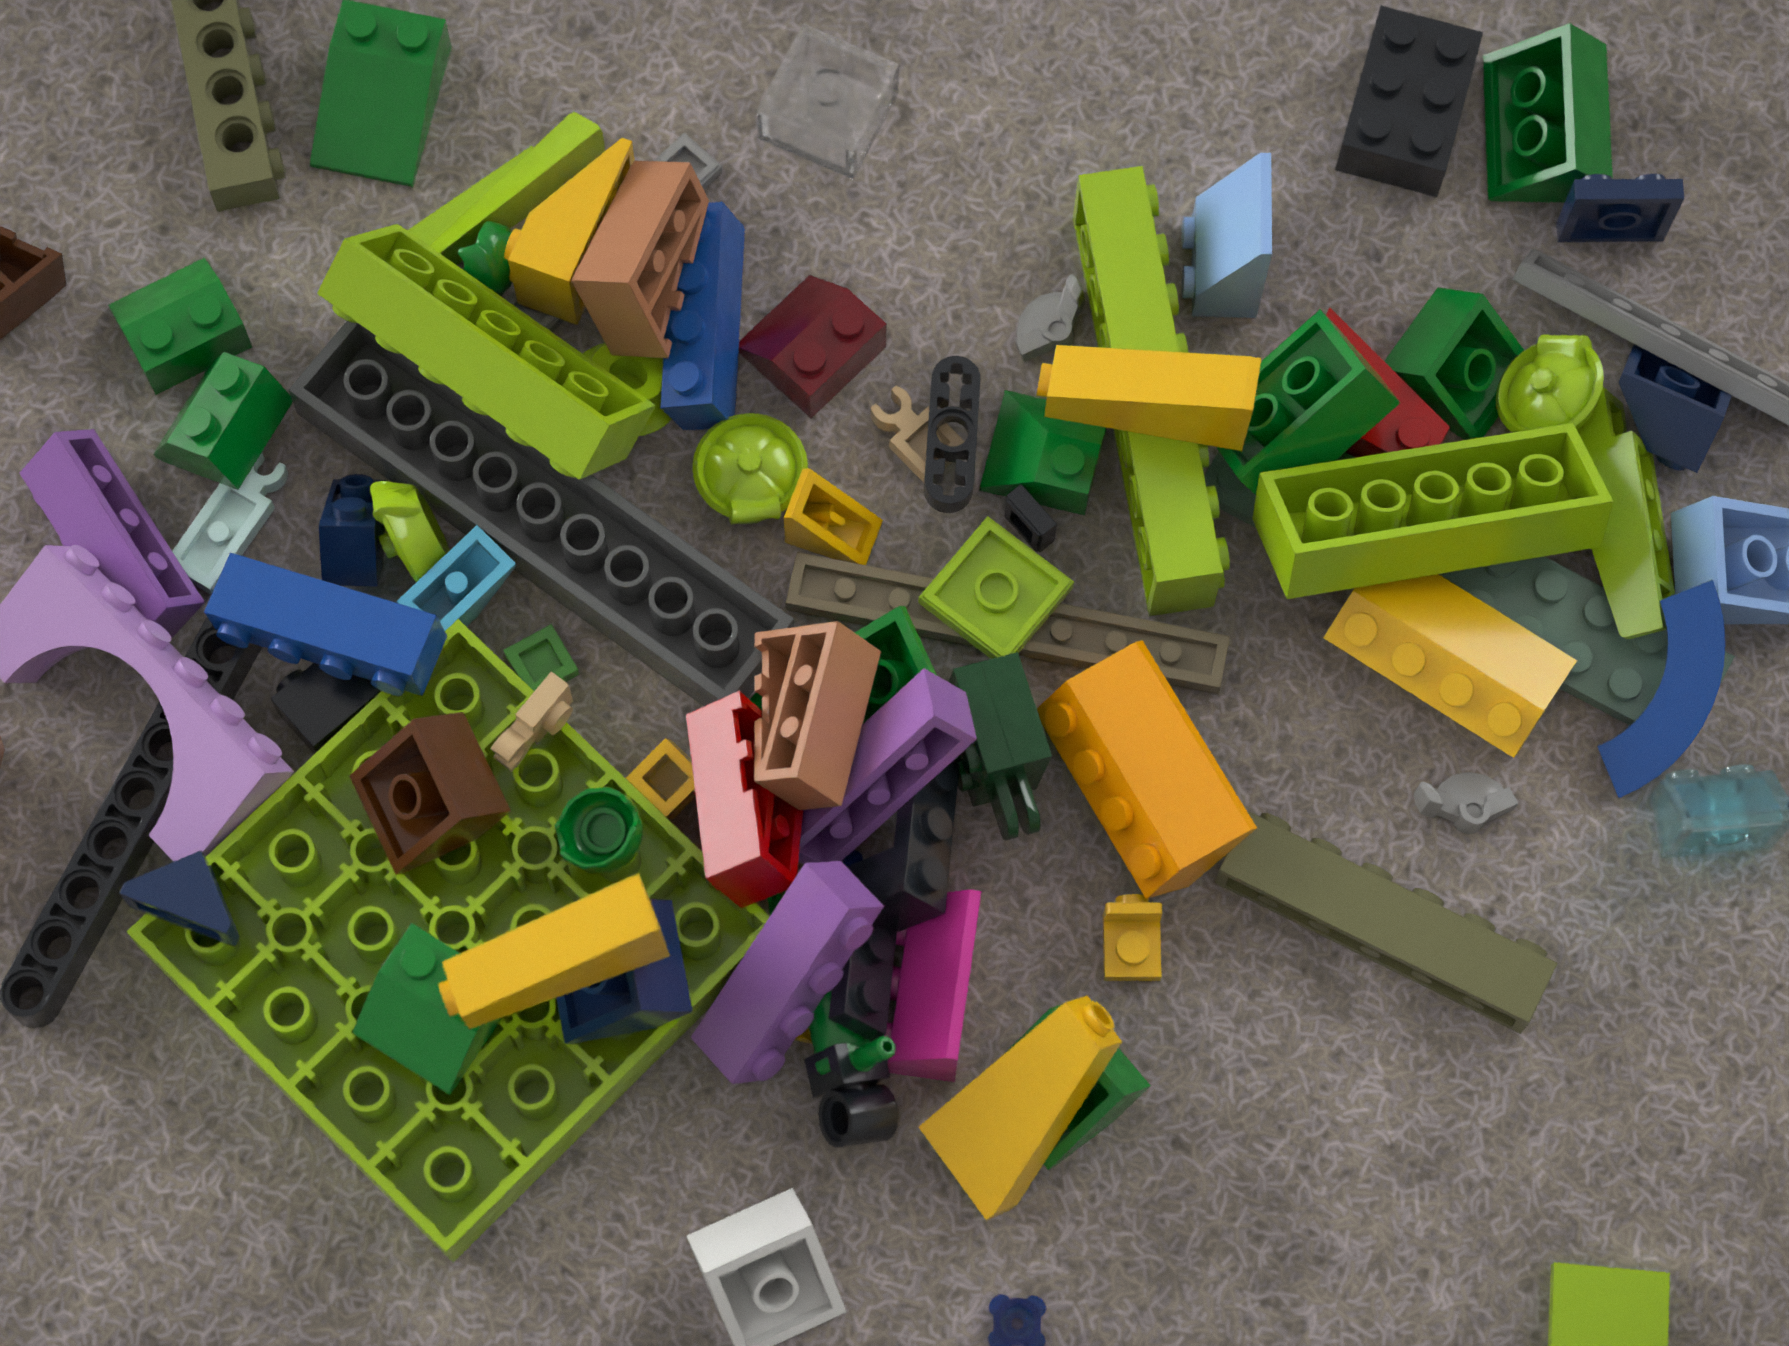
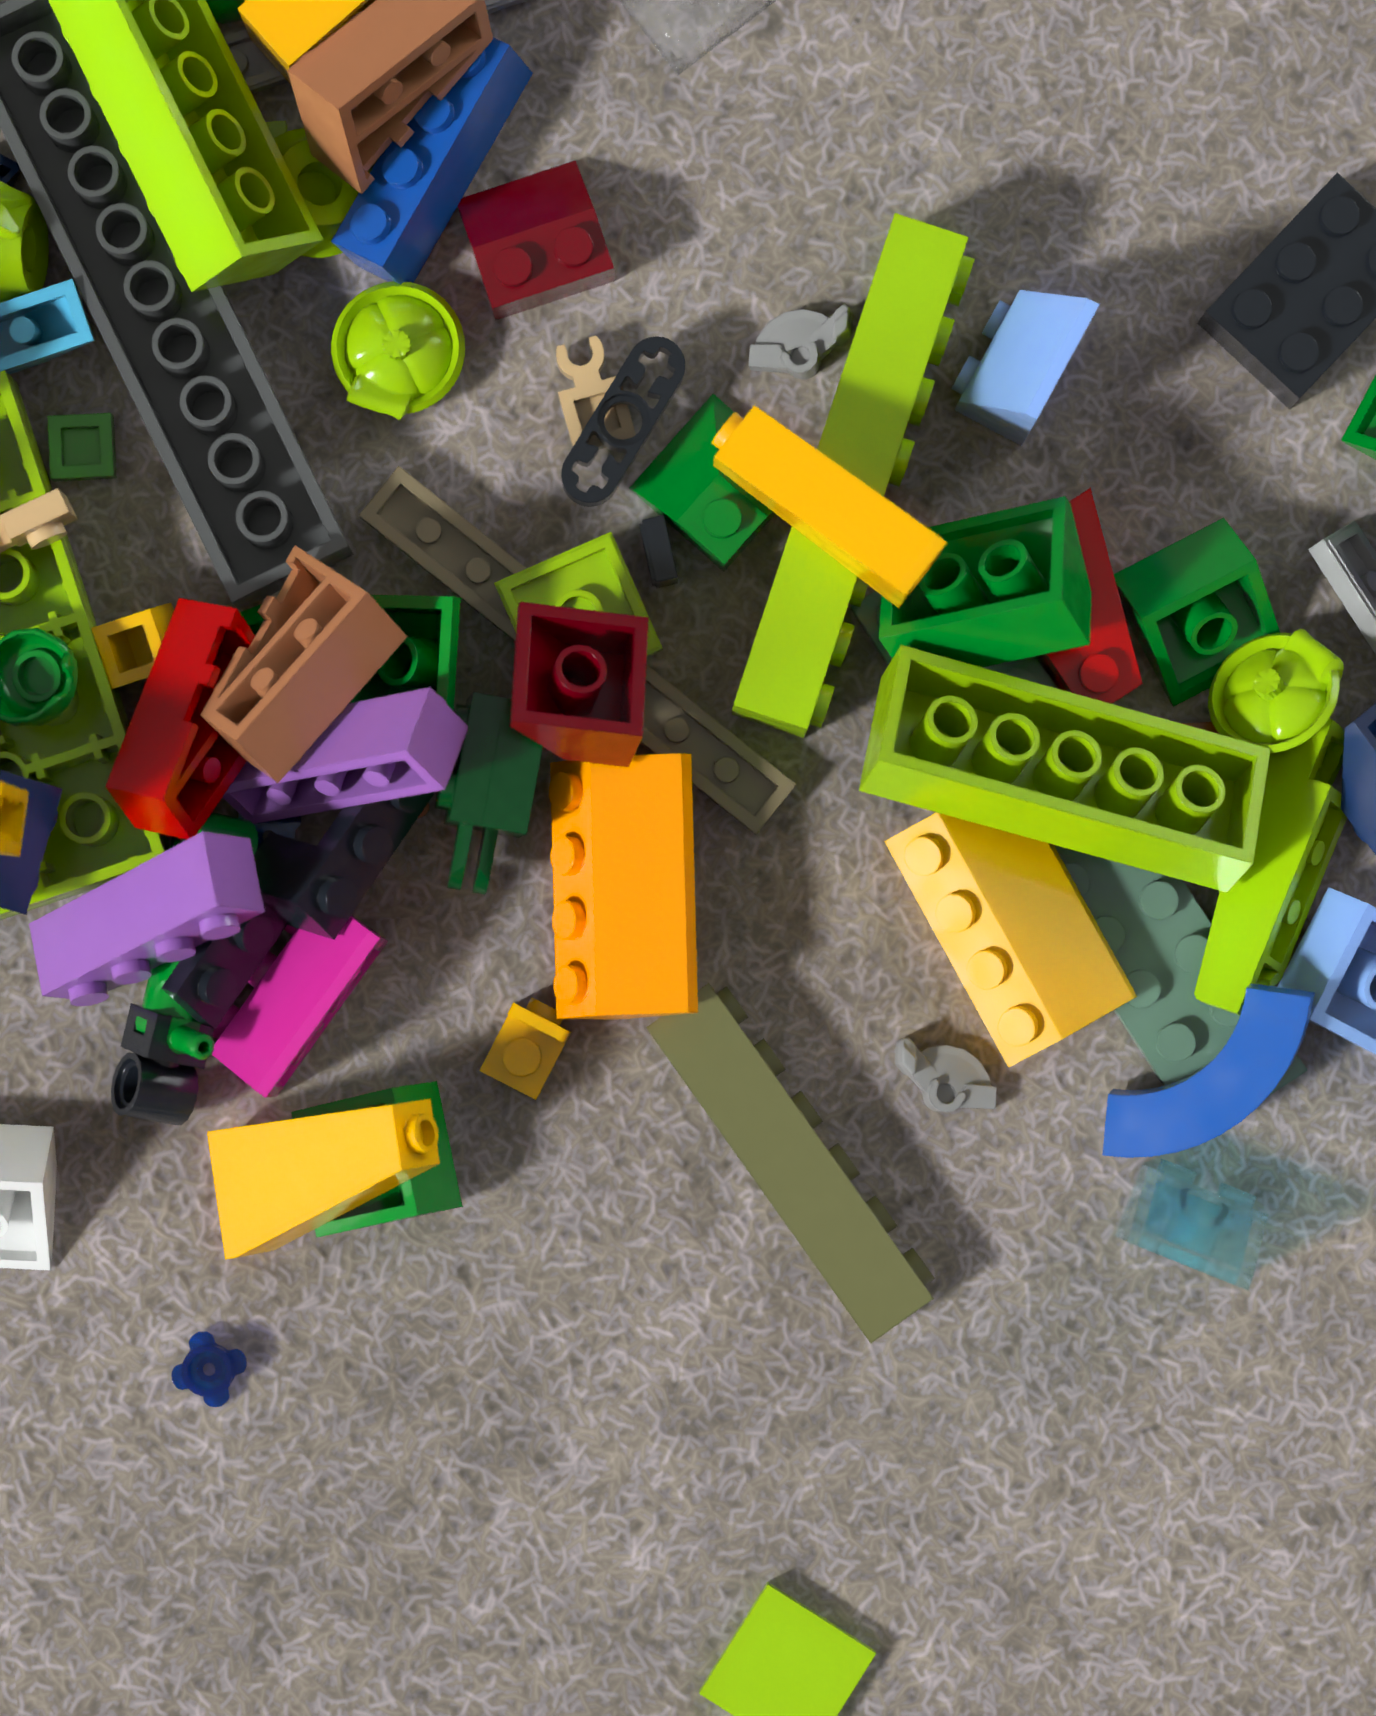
camera: 25 degrees right, 15 degrees up
(829, 521) = (451, 450): yellow slope -> none
(1036, 618) = (580, 682): none -> dark red slope

